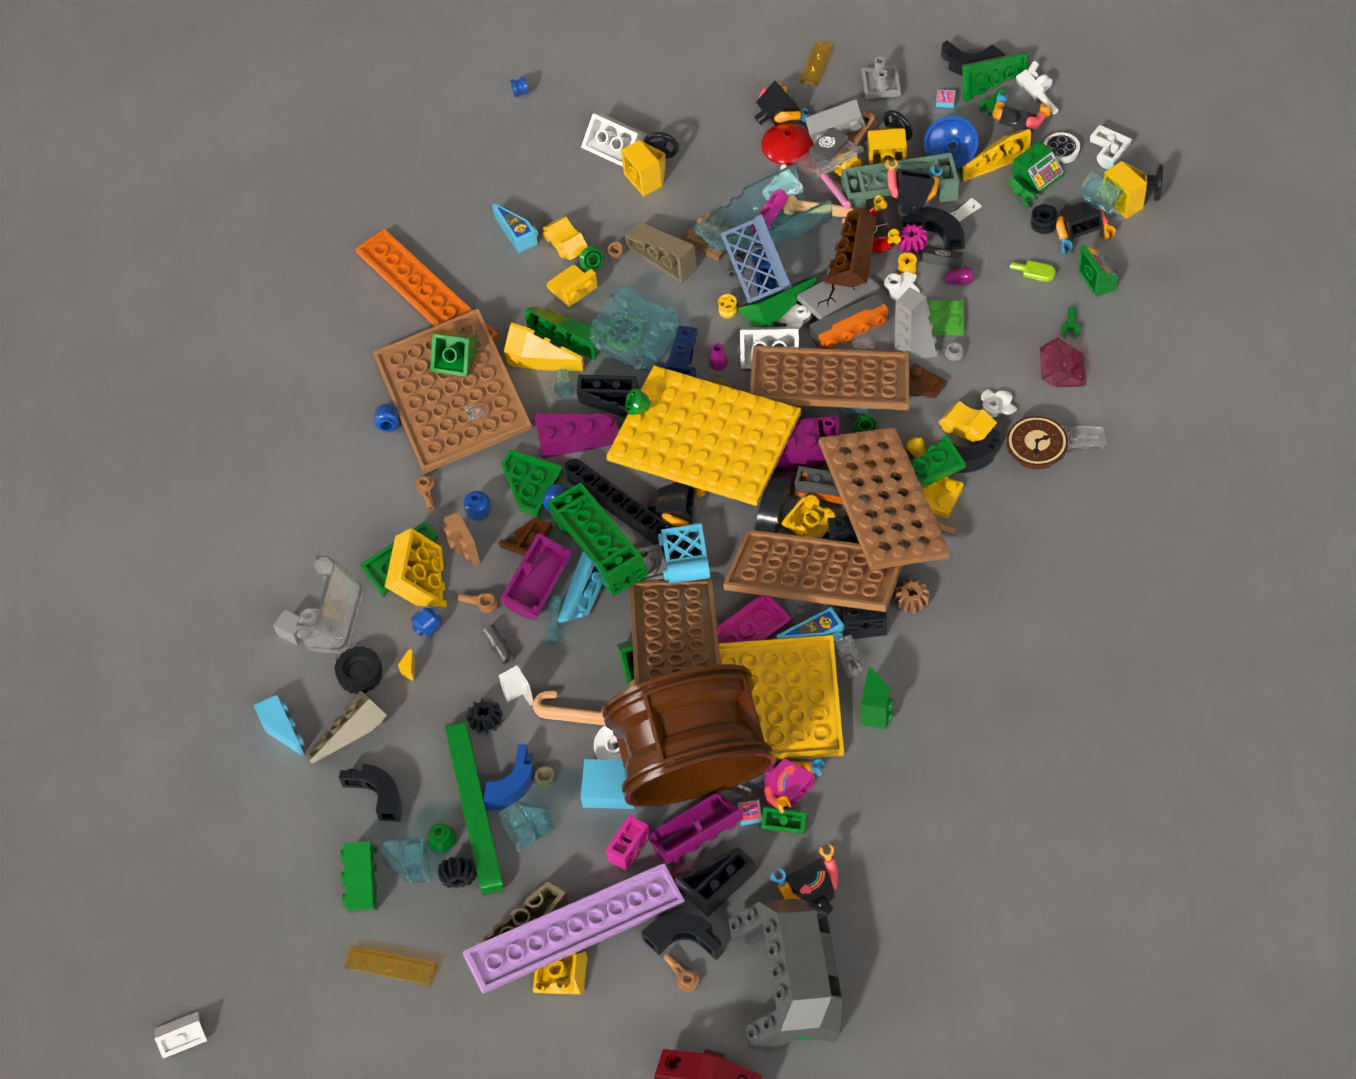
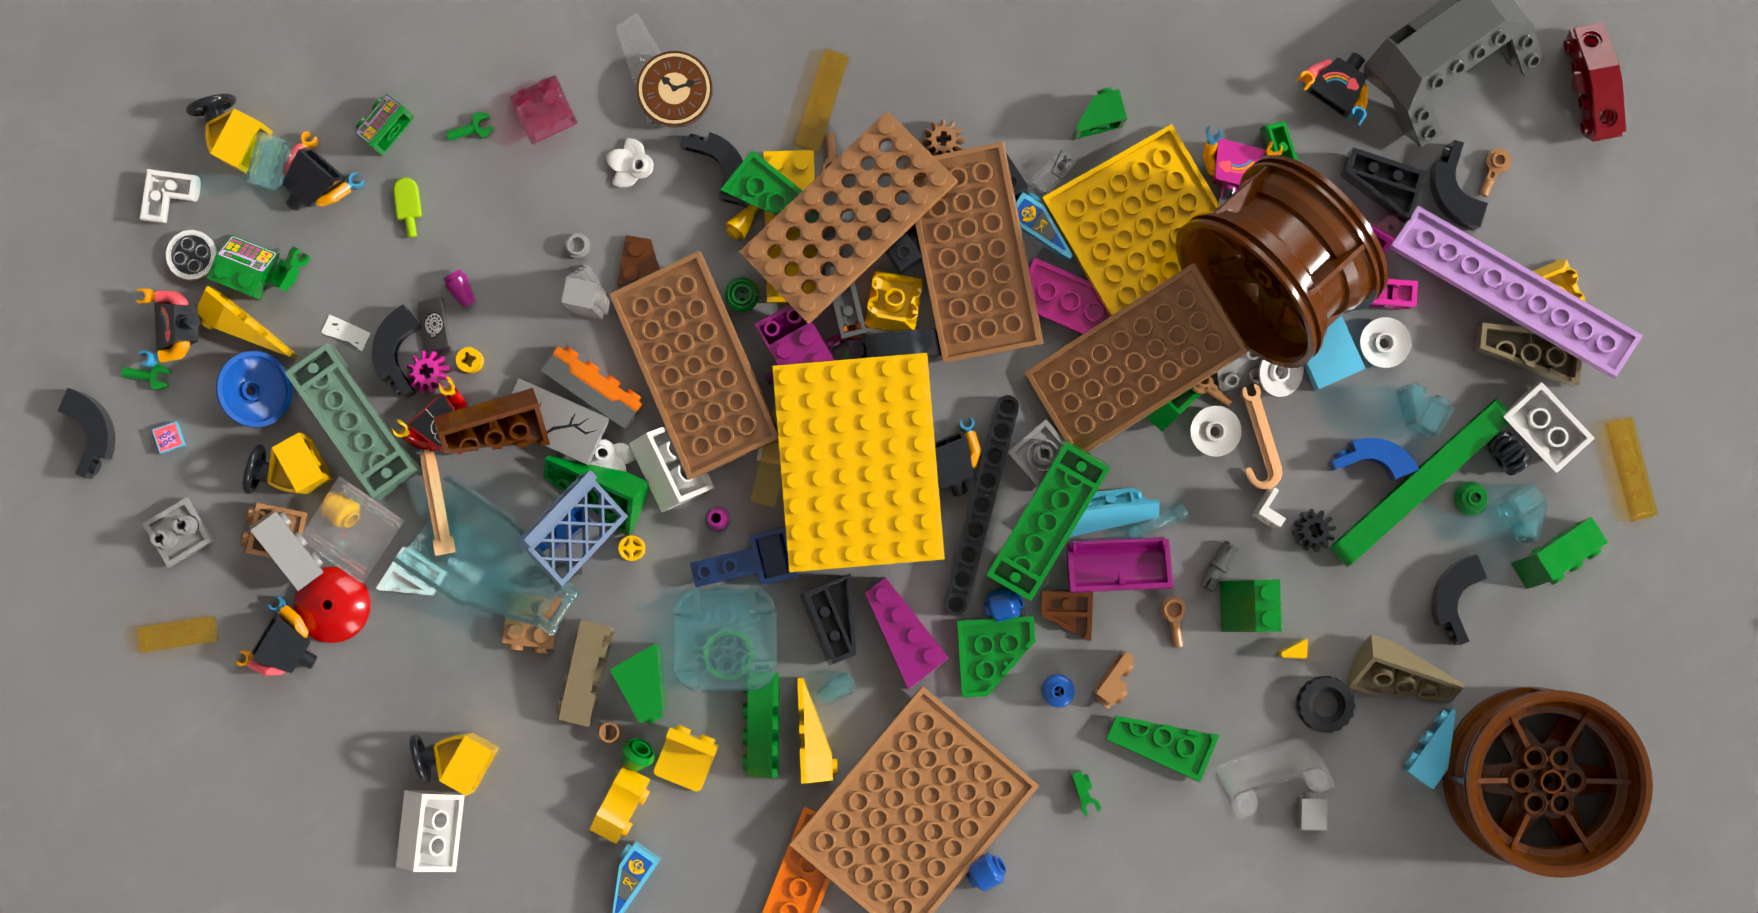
camera: 125 degrees left, 30 degrees up
(179, 718) = (1624, 778): none -> reddish brown wheel
(403, 494) = (1082, 785): none -> green plate
(416, 570) = (1178, 708): yellow wedge -> none
(425, 486) = (1054, 772): medium nougat plate -> none
(426, 621) = (1231, 662): blue head -> none
(453, 352) = (871, 835): green slope -> none
(454, 649) = (1251, 606): none -> green slope
(459, 909) = (1548, 426): none -> white slope
(473, 412) = (940, 762): clear tile -> none
(544, 777) = (1348, 428): dark tan tile -> none
(592, 675) = (1228, 427): none -> white dish
(592, 819) = (1394, 333): none -> white dish
(632, 269) = (643, 683): none -> green slope
(637, 402) = (865, 554): green cone -> none
(687, 566) = (1035, 401): medium azure piece -> none
(772, 207) = (480, 557): dark pink beam -> none
(827, 144) = (334, 537): dark grey slope -> none
(836, 191) = (407, 486): bright pink bar -> none
(864, 344) = (613, 351): clear plate -> none
(899, 284) = (505, 349): white plate -> none
(912, 187) = (368, 391): black torso -> none
(946, 317) = (534, 293): bright green plate -> none
(967, 422) = (680, 182): yellow brick -> none
(984, 536) = (822, 100): none -> clear yellow tile
(990, 73) = (105, 392): green wing -> none
(1037, 87) = (102, 328): white piece -> none
(1044, 219) = (313, 220): black wheel -> none

